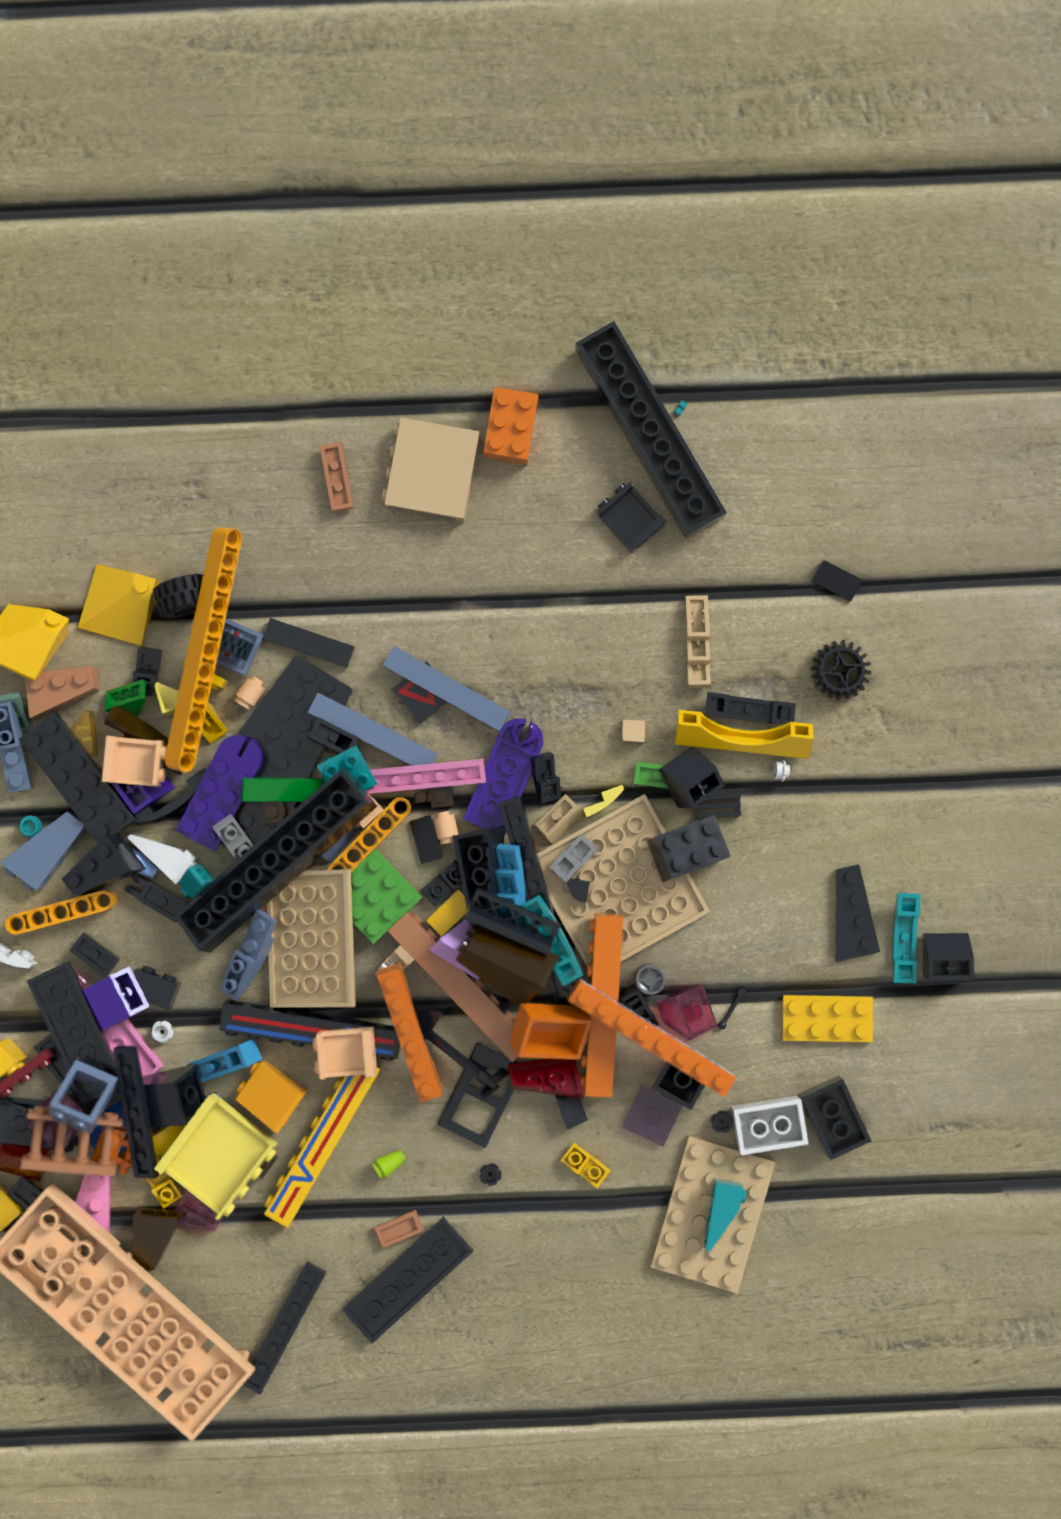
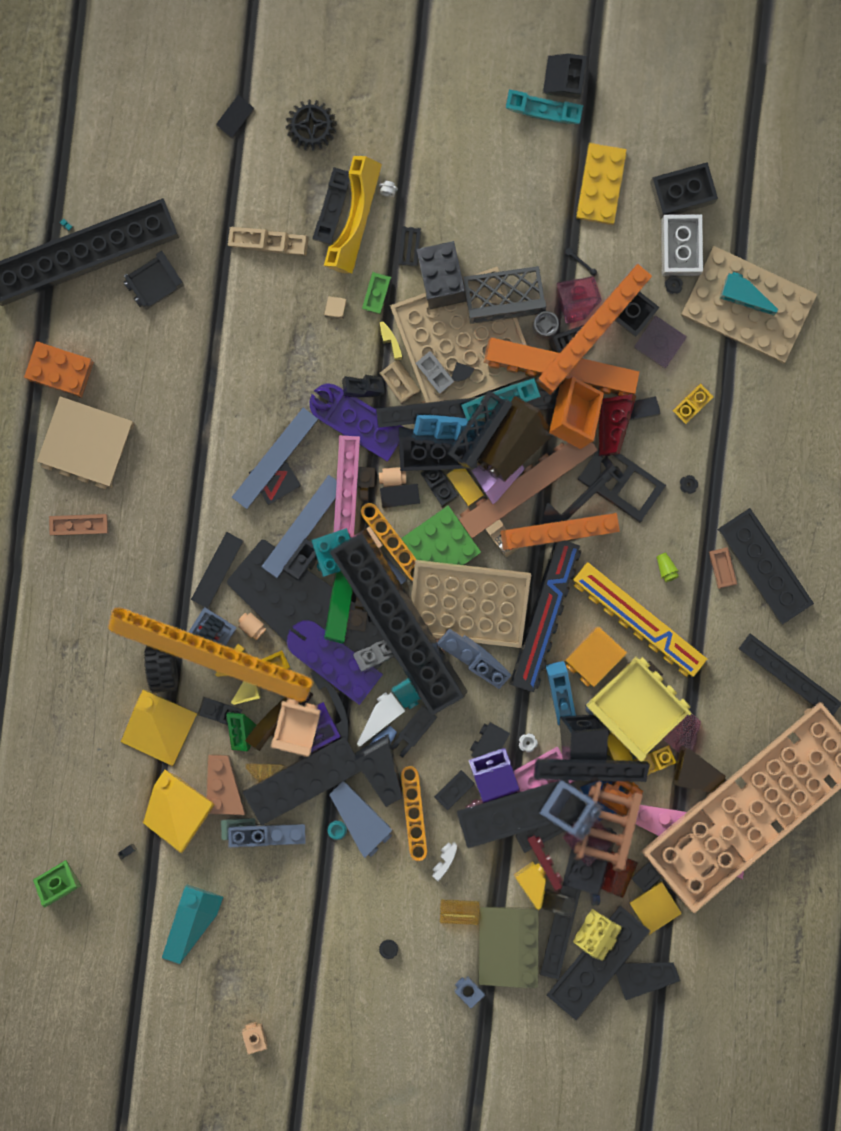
camera: 85 degrees left, 0 degrees up
(345, 1052) = (568, 586): light nougat panel -> none
(659, 931) = (509, 310): none -> dark grey fence
(691, 778) = (383, 263): black slope -> none
(853, 916) = (523, 148): black wing -> none

